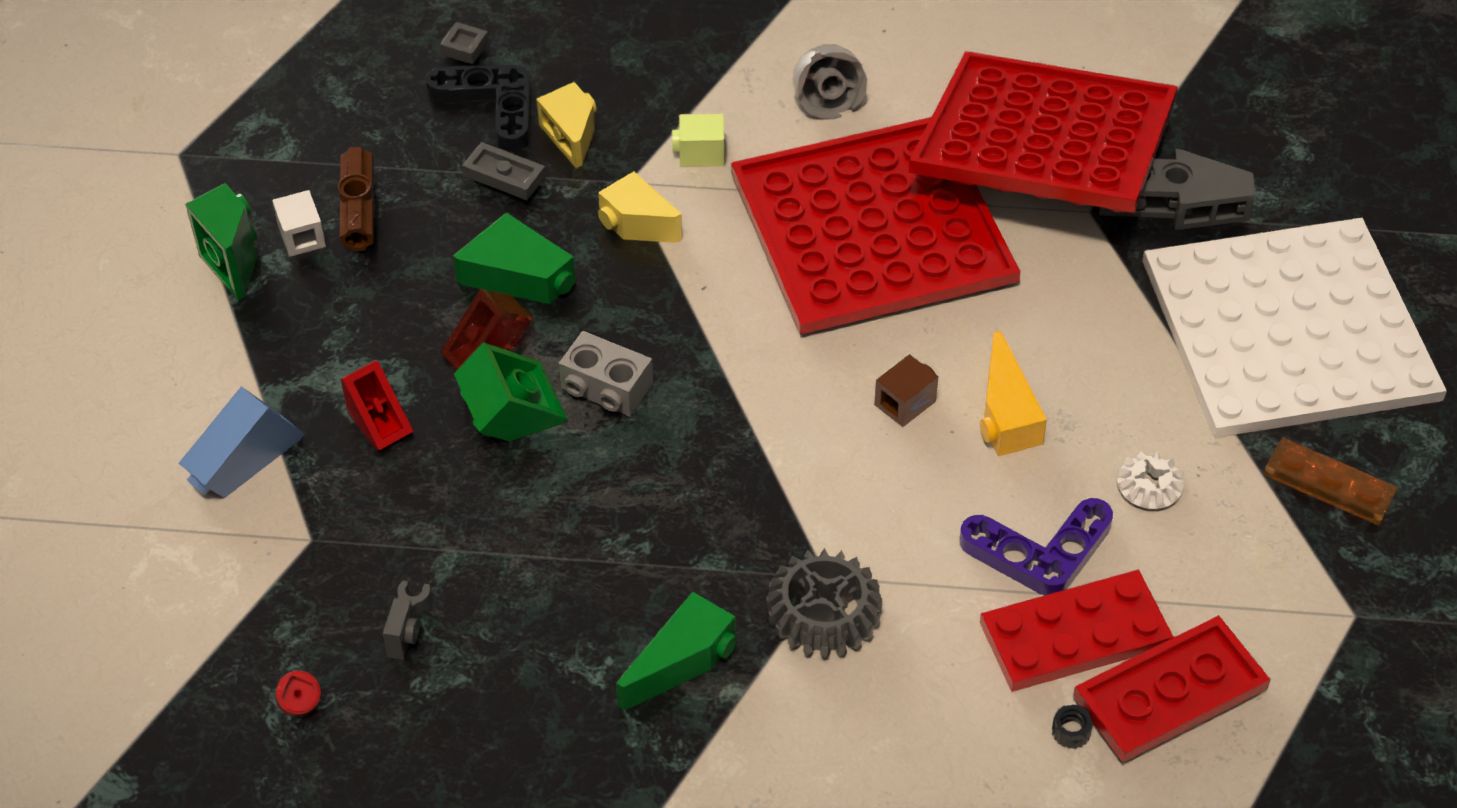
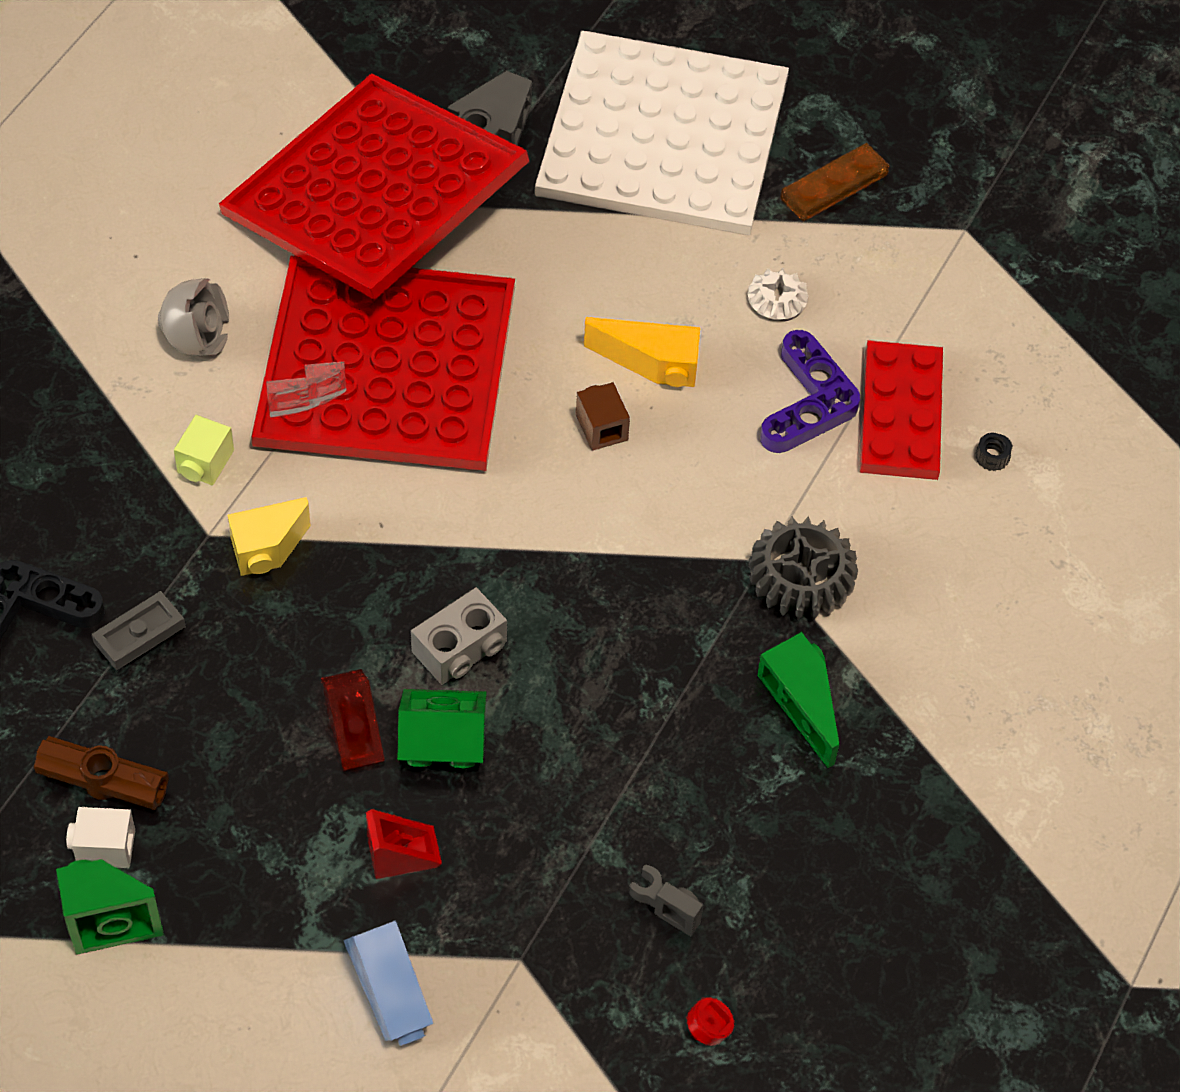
camera: 70 degrees left, 5 degrees up
(515, 262) = (275, 659): green slope -> none
(568, 120) = (111, 549): light yellow slope -> none
(794, 173) = (296, 395): none -> clear slope
(1171, 688) = (990, 371): red plate -> none

